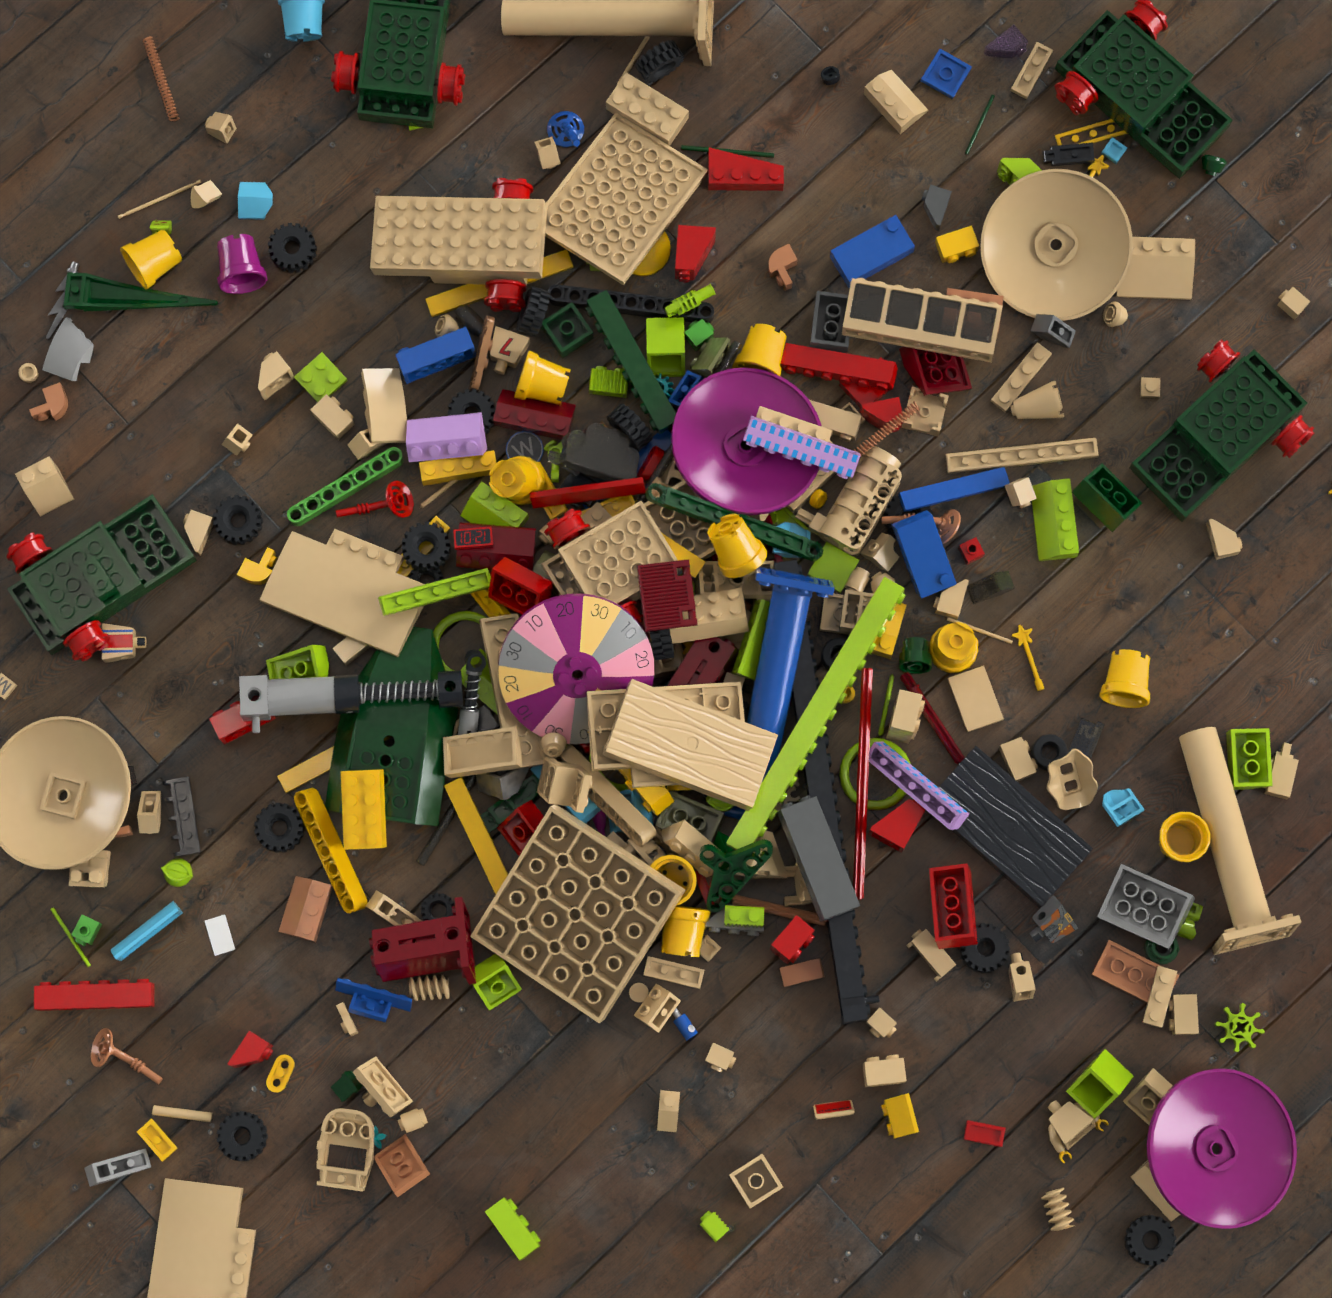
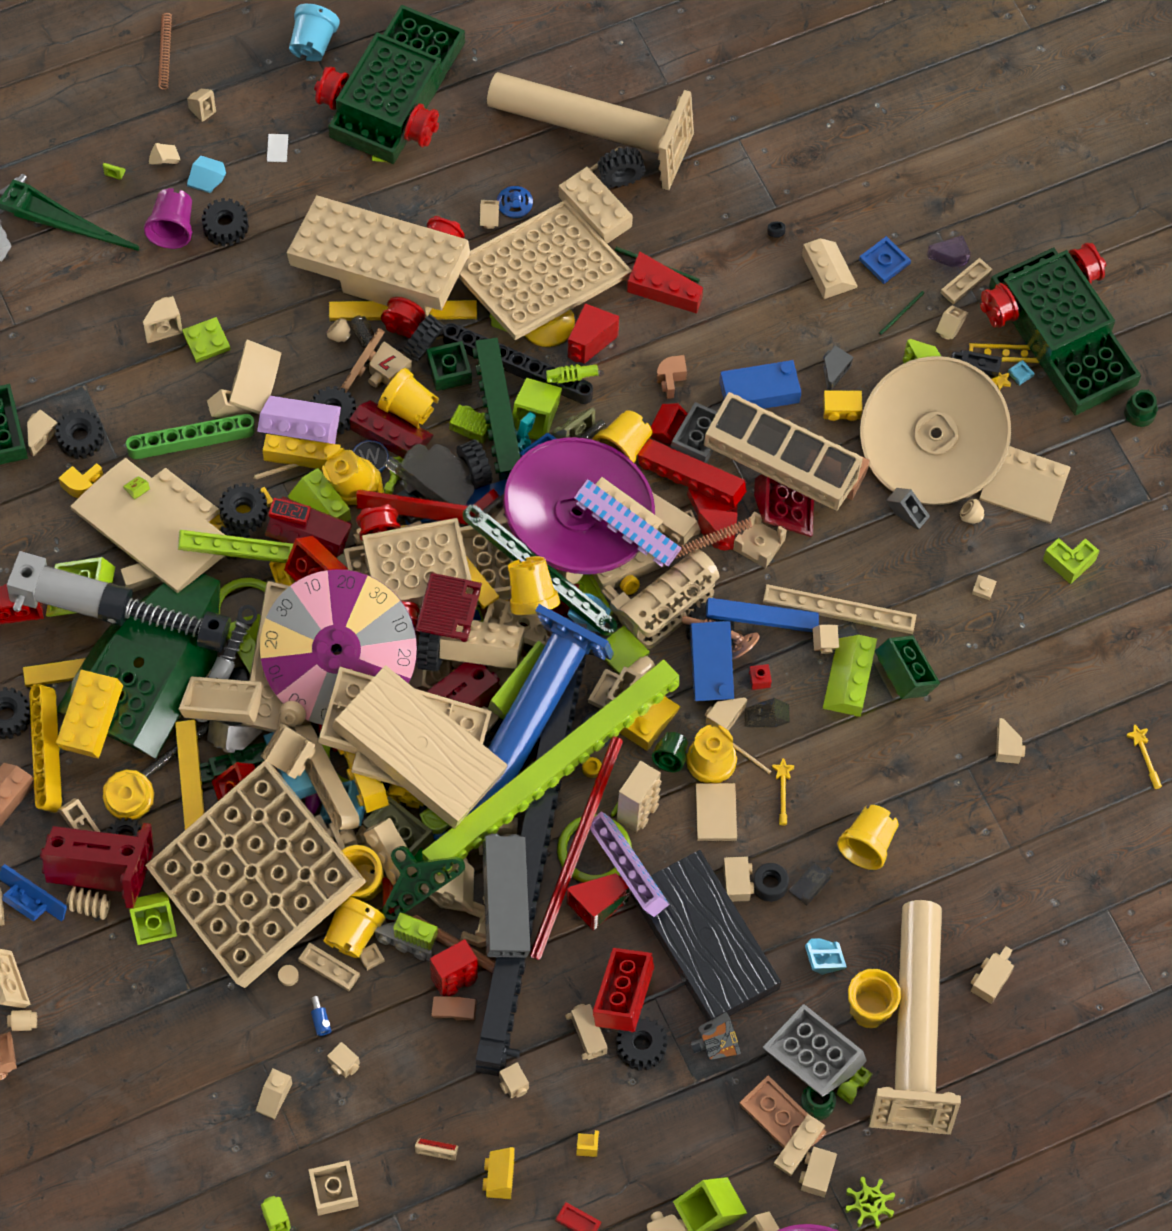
camera: 15 degrees right, 15 degrees down
(151, 257) = (93, 188): yellow piece -> none
(159, 199) = (118, 148): tan piece -> none
(237, 440) = (107, 364): tan brick -> none
(312, 147) = (277, 148): none -> white sticker
(316, 560) = (137, 487): none -> lime slope
(332, 416) = (203, 373): tan brick -> none
(391, 502) = (228, 463): red dish -> none
(426, 870) = (128, 794): none -> yellow piece
(435, 355) = (318, 349): blue brick -> none
(513, 1228) = (78, 1151): lime brick -> none
(657, 1008) = (299, 992): tan brick -> none
(665, 370) = (526, 424): none -> teal tile
(699, 333) = (570, 406): bright green brick -> none
(797, 318) = (668, 422): none -> red brick
(881, 552) = (672, 649): tan brick -> none
(884, 1072) = (499, 1124): tan brick -> none
(934, 720) = (669, 819): dark red axle -> none
(968, 1059) = (587, 1144): none -> yellow panel
(1021, 377) = (863, 540): tan plate -> none
(1021, 985) = (667, 1083): tan torso -> none
(1032, 119) = (951, 322): none -> tan slope
(1039, 403) = (872, 566): tan cone -> none
(1081, 772) = (794, 910): tan piece -> none
(1213, 164) = (1110, 411): dark green cone -> none
(1213, 332) = (1070, 562): none -> lime panel
(1222, 430) = (1039, 641): dark green piece -> none
(1237, 160) = (1141, 408): none -> dark green piece
(1249, 758) = (965, 949): lime slope -> none
(1293, 302) = (1147, 554): tan brick -> none

